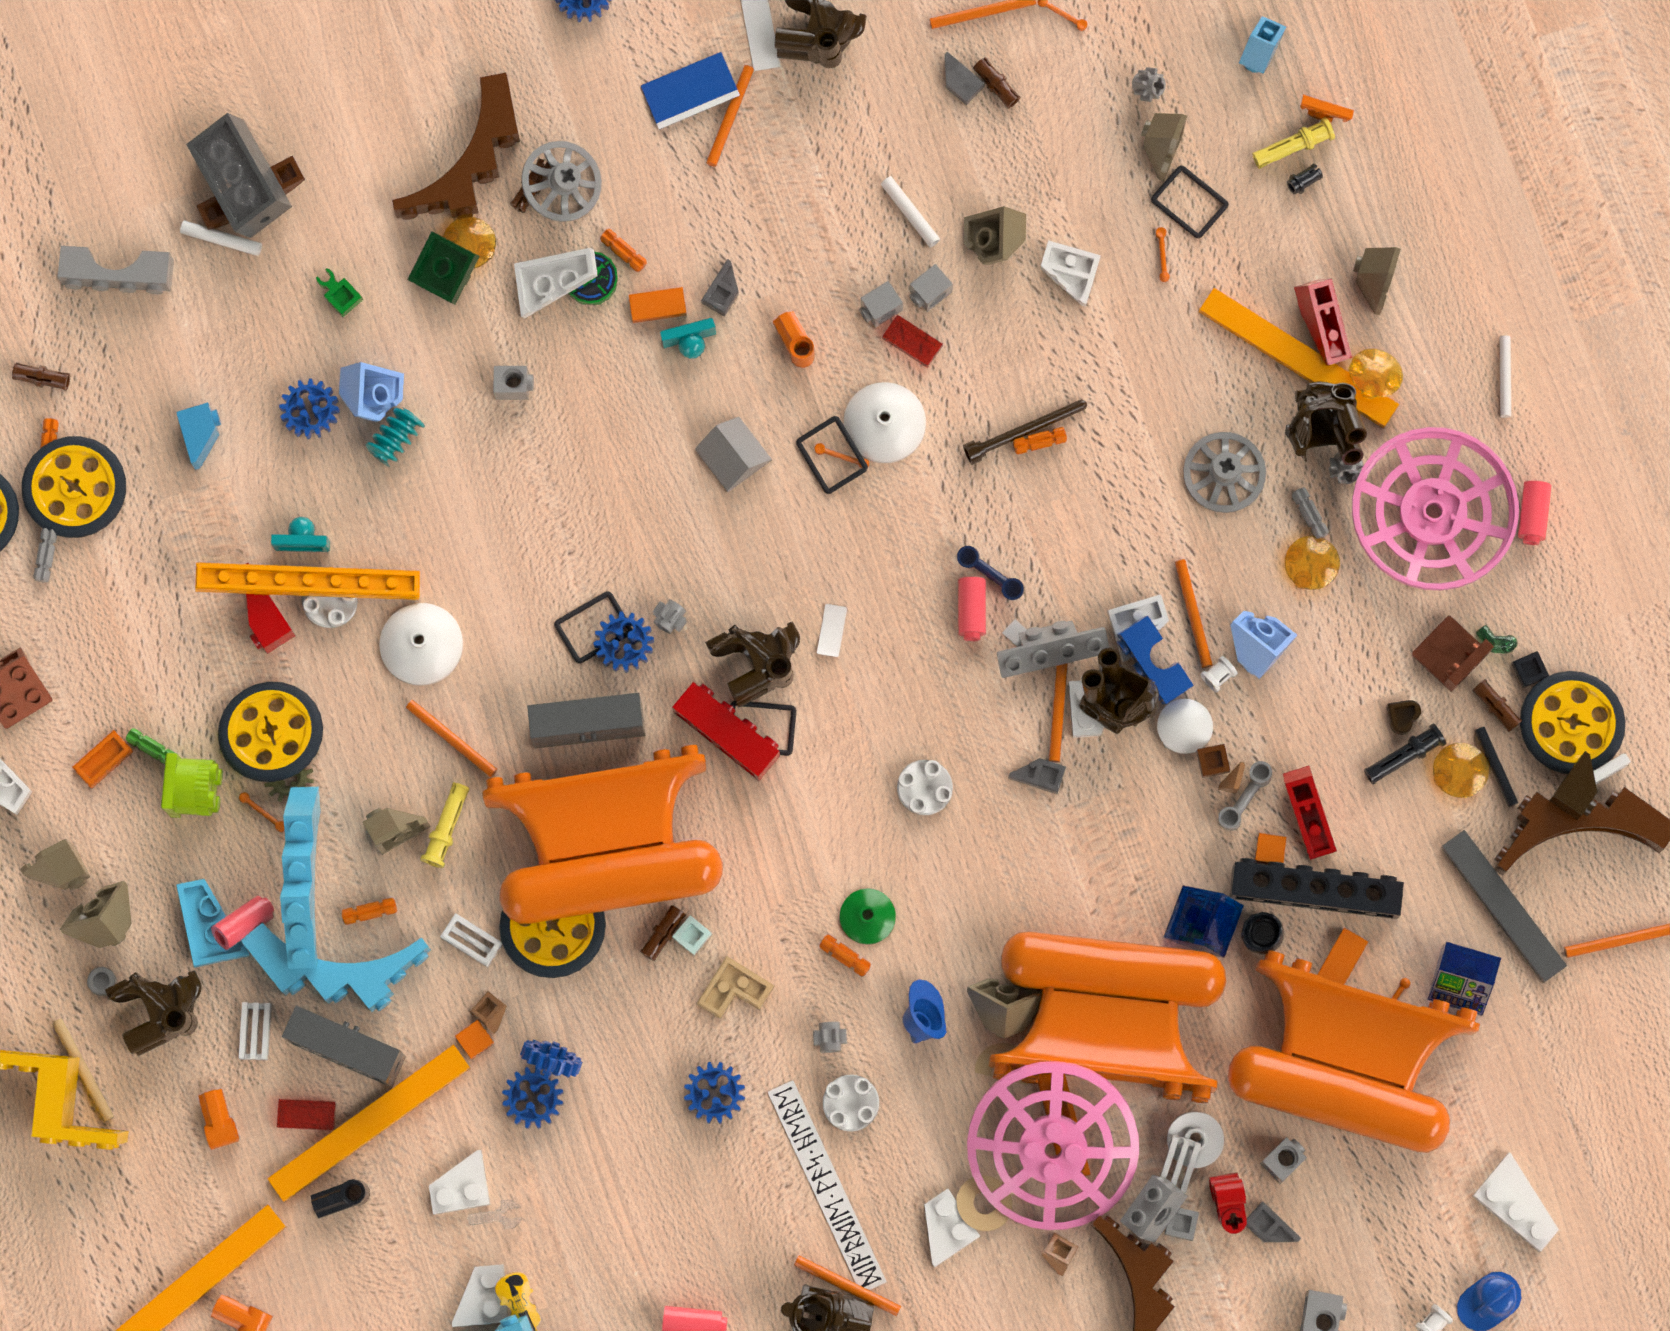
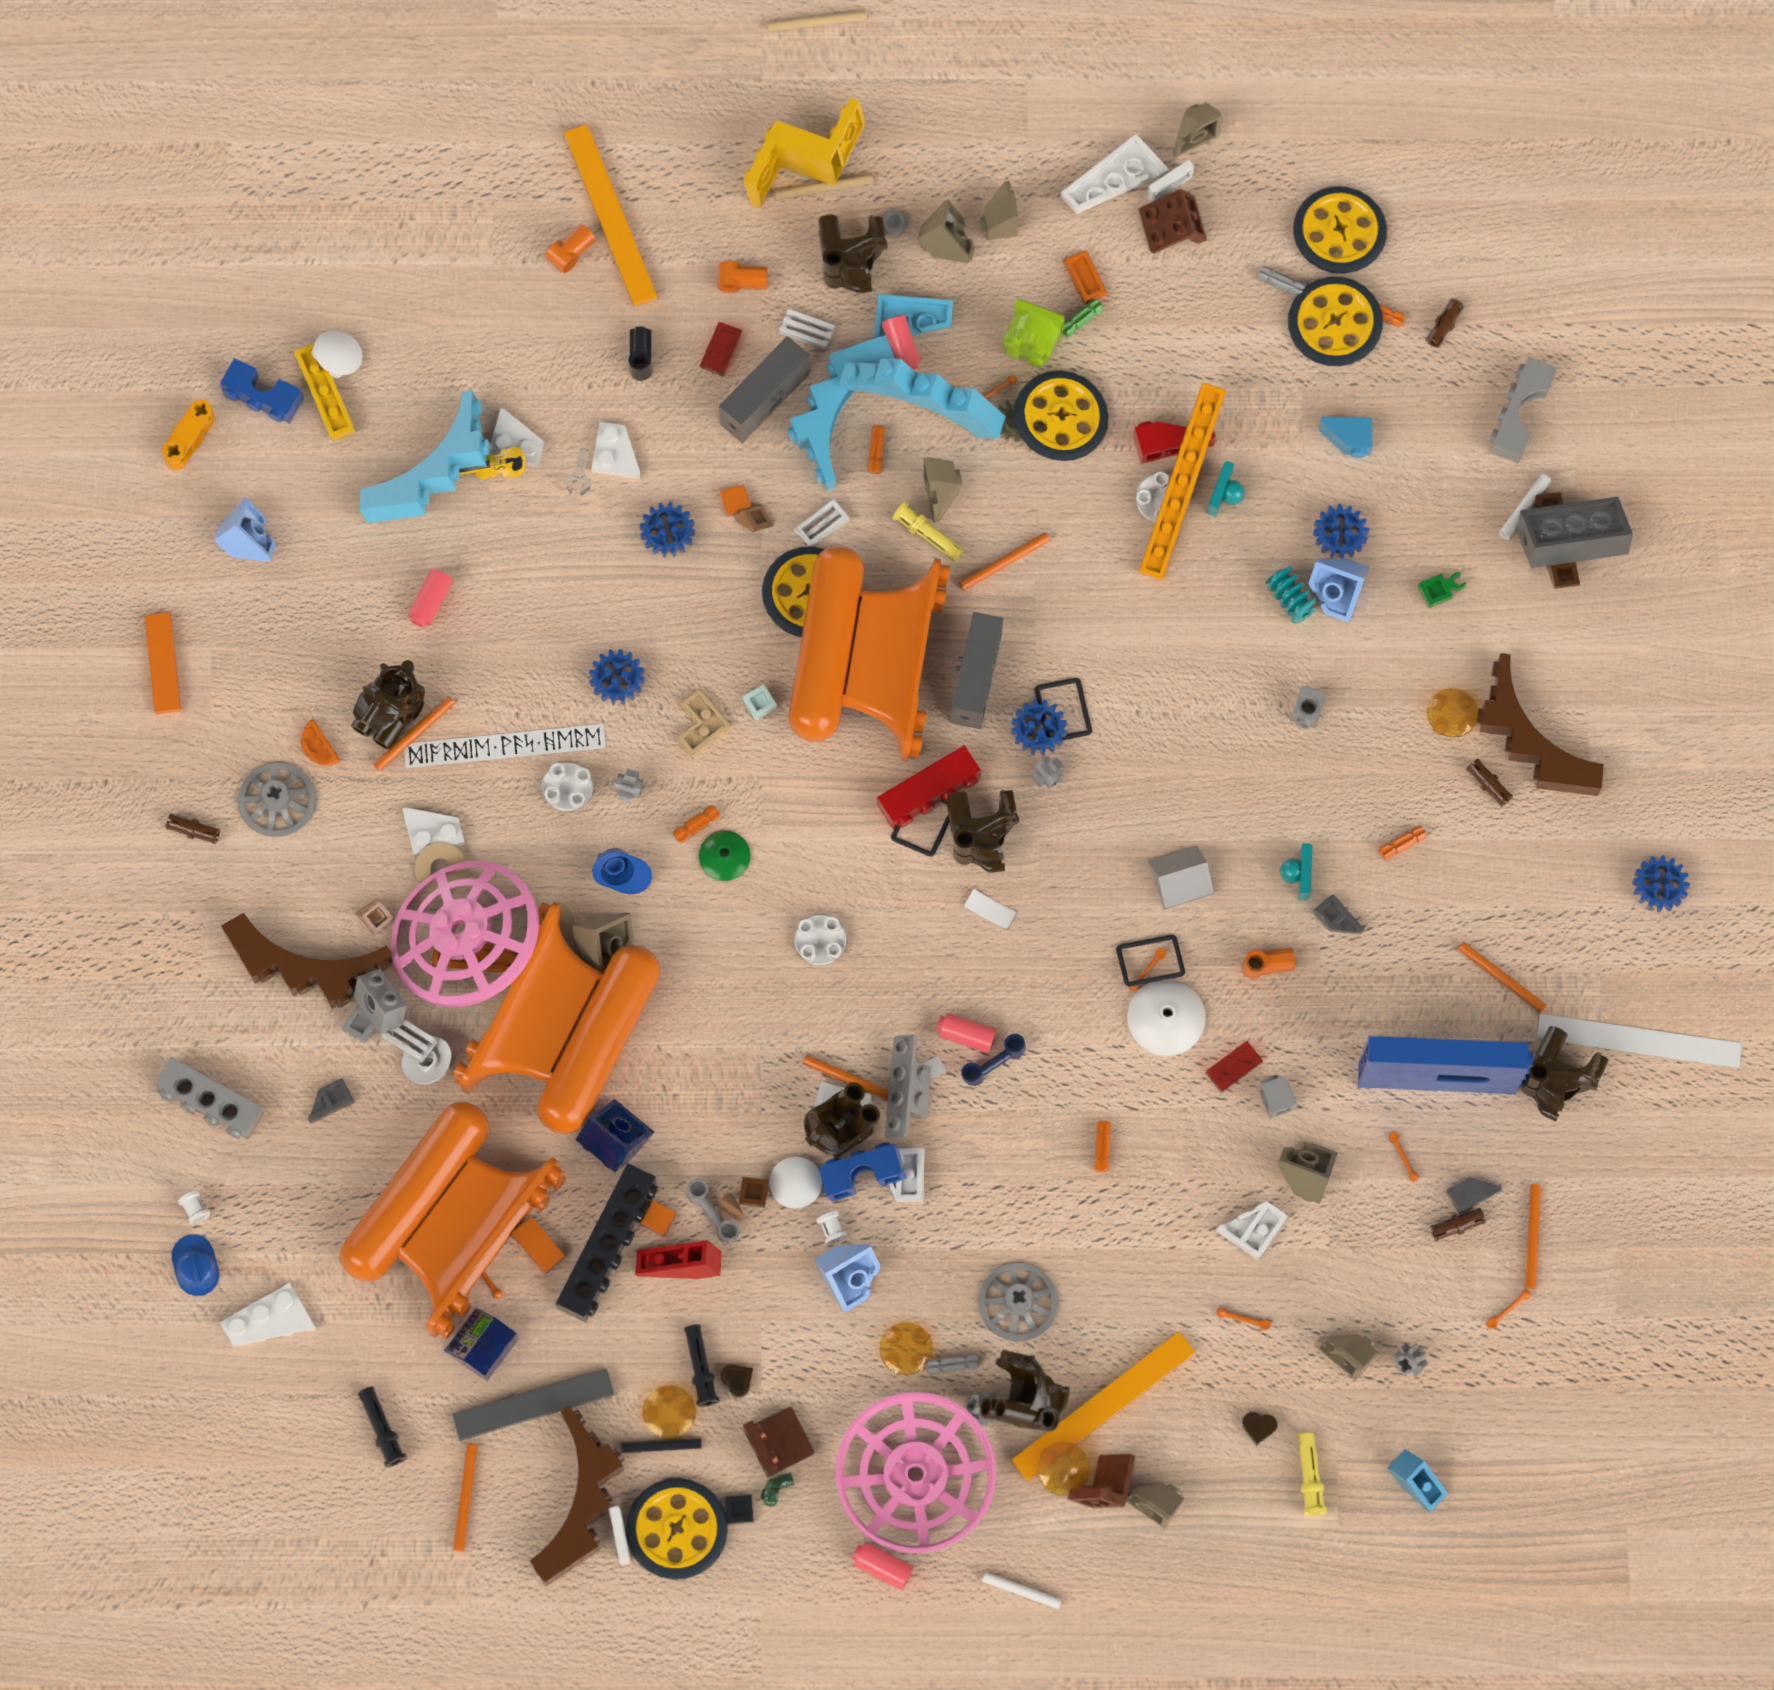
camera: 105 degrees right, 5 degrees down
(368, 1123) = (695, 396): light orange tile -> none
(426, 661) = (1095, 577): white dish -> none
(443, 268) = (1433, 681): dark green hinge -> none
(551, 1058) = (693, 550): blue gear -> none
(552, 277) = (1394, 769): white wing -> none
(562, 179) = (1484, 808): light grey wheel -> none
(601, 287) = (1385, 806): tile -> none
(657, 305) = (1341, 856): orange tile -> none
(663, 933) = (770, 680): reddish brown pin -> none
(690, 90) = (1537, 949): blue sticker -> none
(853, 129) = (1444, 1065): none -> blue panel
(880, 304) = (1276, 1047): light grey brick -> none
(910, 211) = (1357, 1105): white piece -> none
(929, 169) = (1393, 1138): none -> orange hinge
(976, 450) = (1111, 1087): dark brown piece -> none
(1040, 774) = (796, 1043): flat silver tile -> none
(1193, 613) = (897, 1227): orange bar -> none
(1197, 235) = (1297, 1330): black piece -> none
(1229, 1198) = (363, 1067): red piece -> none
(1262, 933) = (584, 1181): black hair -> none
(1263, 206) = (1259, 1426): none -> dark brown tile
(1279, 1171) = (373, 1122): light grey brick -> none
(1302, 180) = (1273, 1472): black pin -> none
(1320, 109) = (1333, 1513): orange tile -> none
(1323, 319) = (1128, 1438): red slope -> none
(1377, 323) = (1109, 1484): none -> copper bracket
(1497, 705) = (716, 1465): reddish brown pin -> none
(1577, 789) = (609, 1497): dark brown slope -> none
(1594, 1038) = (386, 1438): none -> black pin

